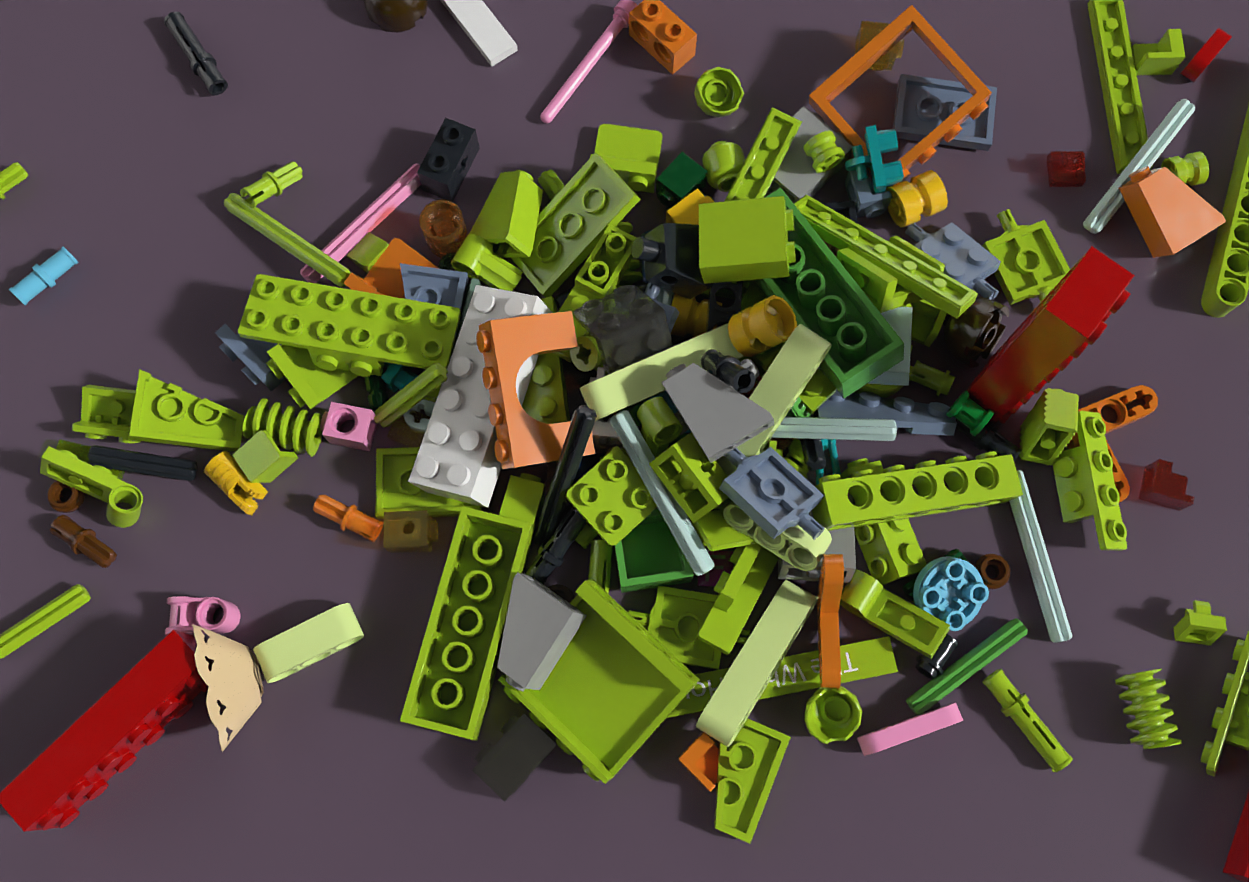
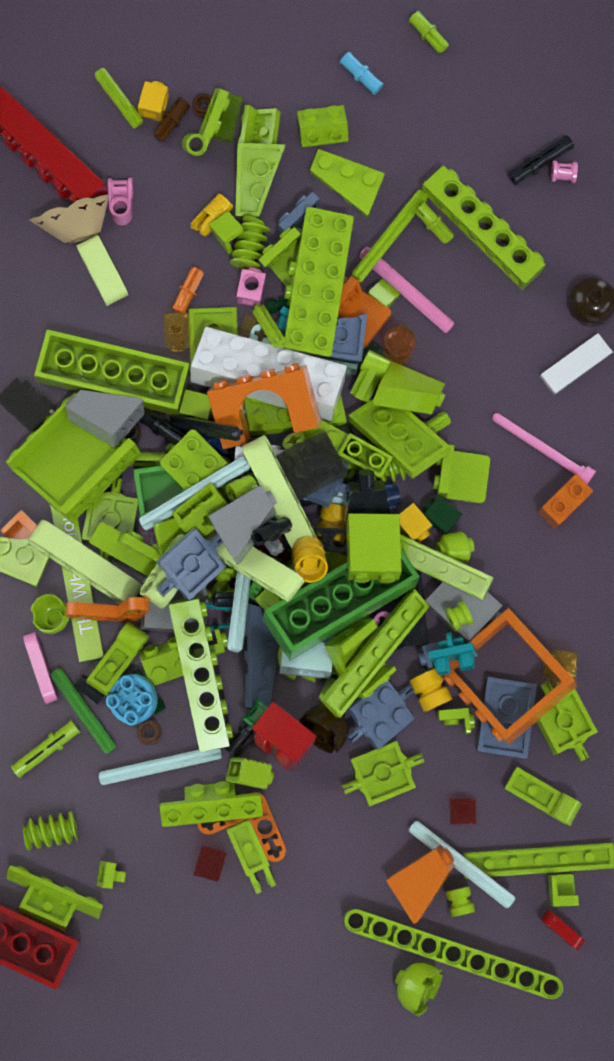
camera: 85 degrees right, 5 degrees up
(49, 566) = (153, 100): none -> yellow brick
(116, 328) = (323, 125): none -> lime bracket
(142, 463) = (224, 153): black axle -> none
(198, 296) = (349, 179): none -> lime wing
(214, 25) = (564, 171): none -> bright pink bush
(282, 139) = (520, 273): none -> lime brick
(448, 159) = (455, 346): black brick -> none
(718, 92) = (515, 544): lime hair -> none
(932, 378) = (291, 696): lime pin -> none
(949, 165) = (452, 717): none -> lime bracket
(959, 33) = (566, 724): none -> lime plate
(1043, 71) = (543, 796): none -> lime plate
(1148, 432) = (250, 853): none -> lime hinge

